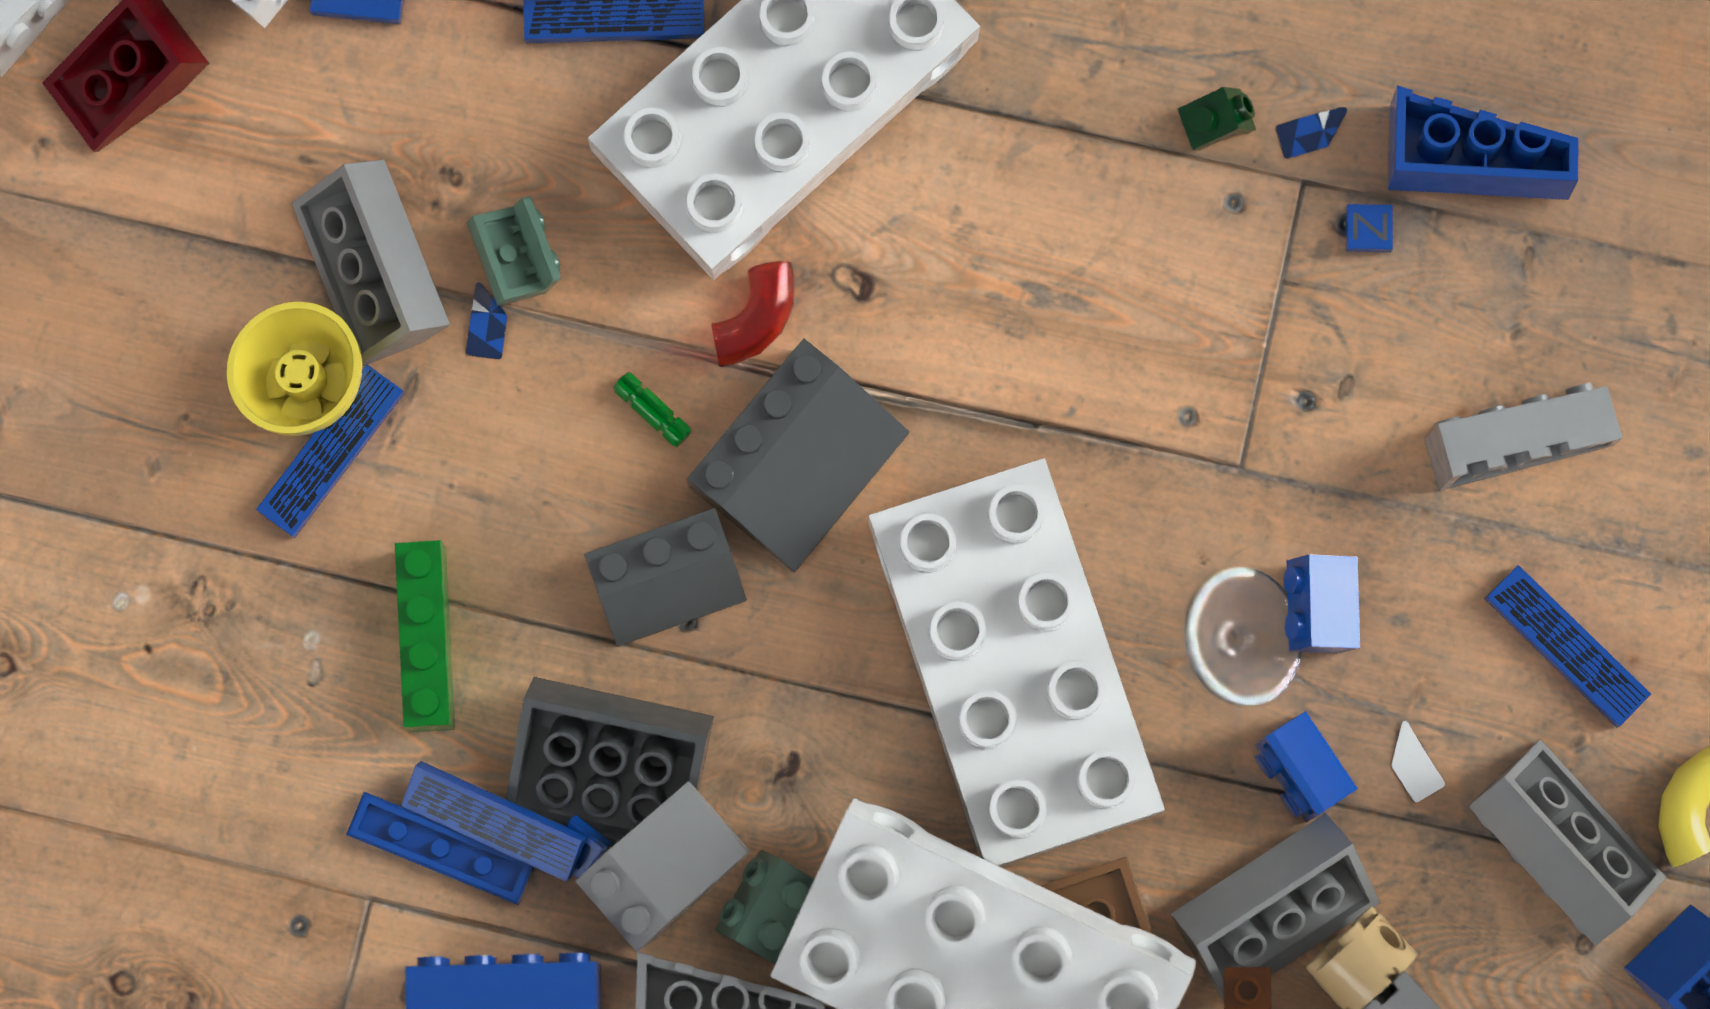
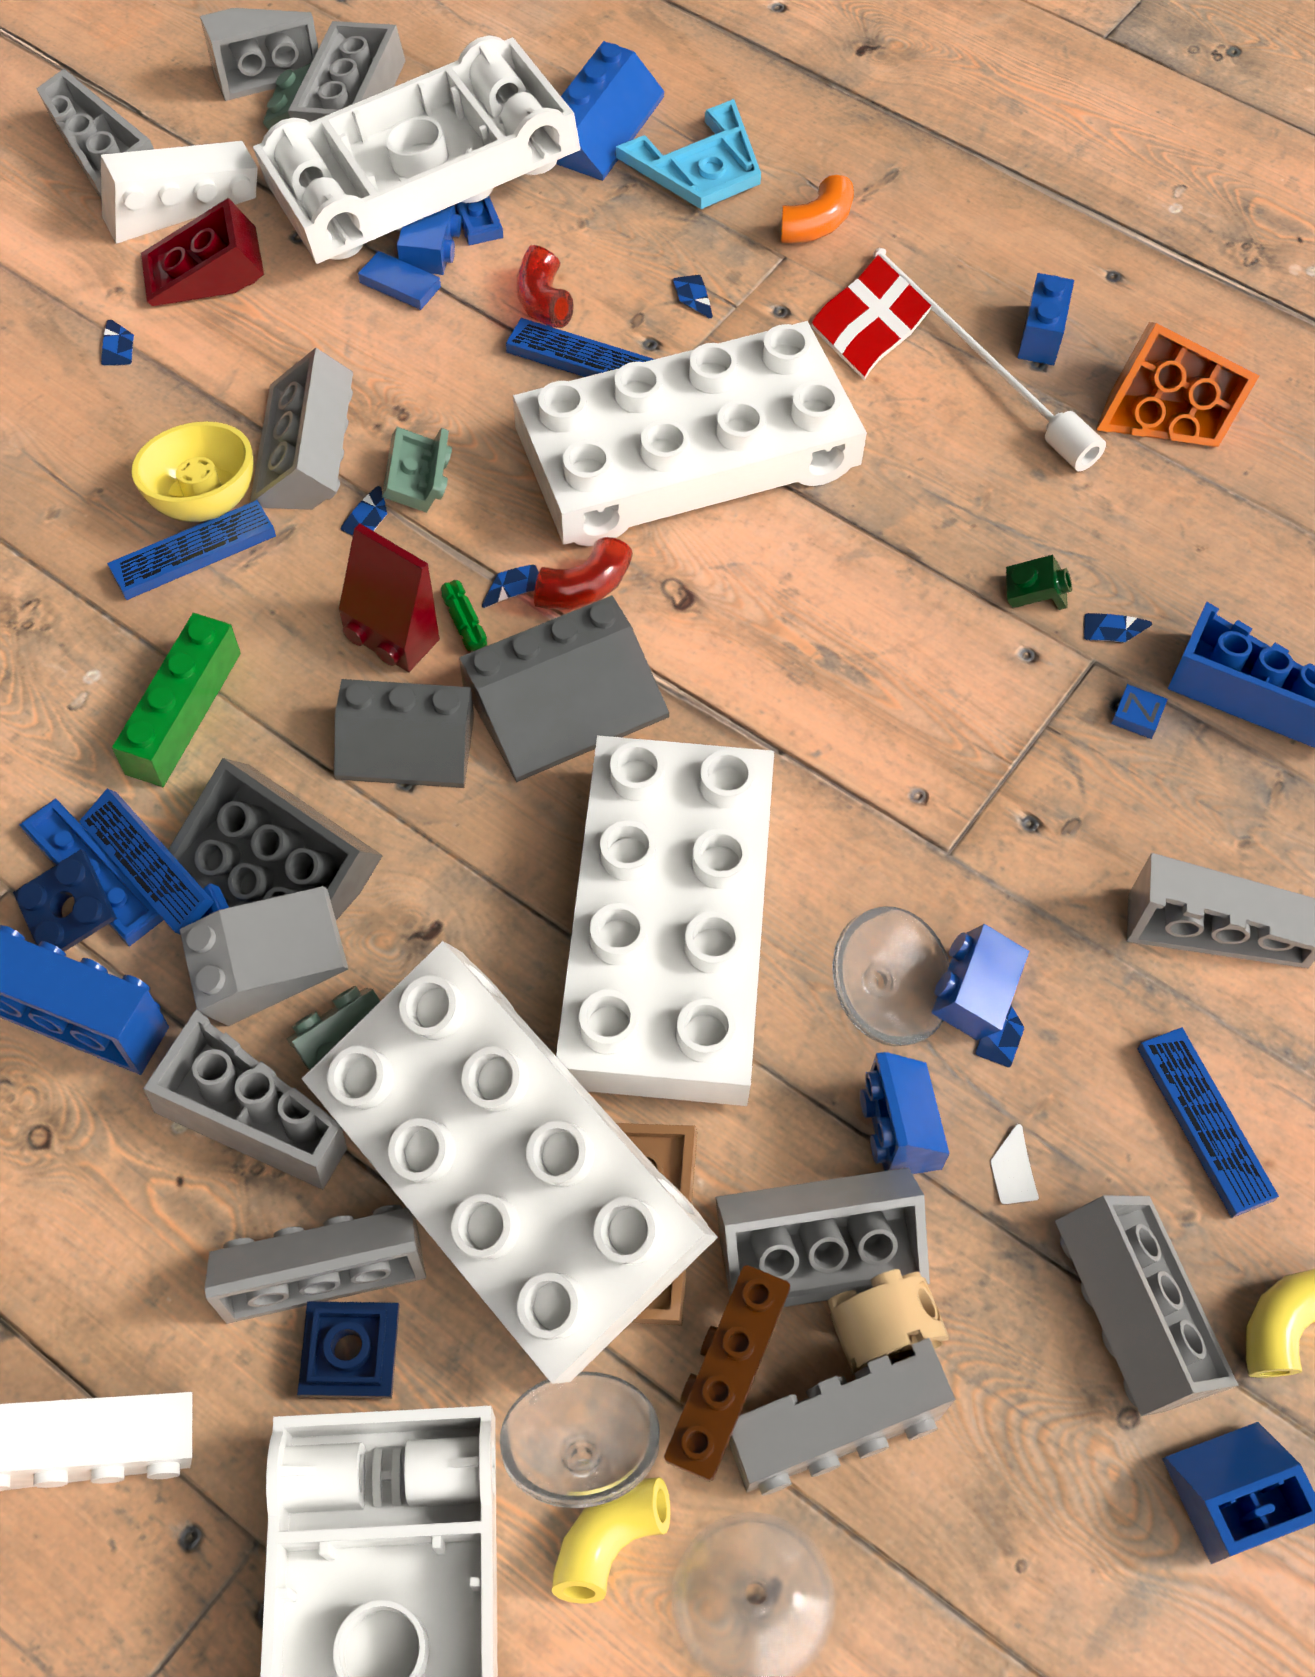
camera: 25 degrees right, 20 degrees down
(90, 220) = (117, 345): none -> dark blue sticker
(420, 908) = (44, 897): none -> dark blue piece
(584, 450) = (388, 600): none -> dark red slope
(681, 345) = (511, 583): none -> sticker
(1367, 654) = (1003, 1044): none -> dark blue sticker

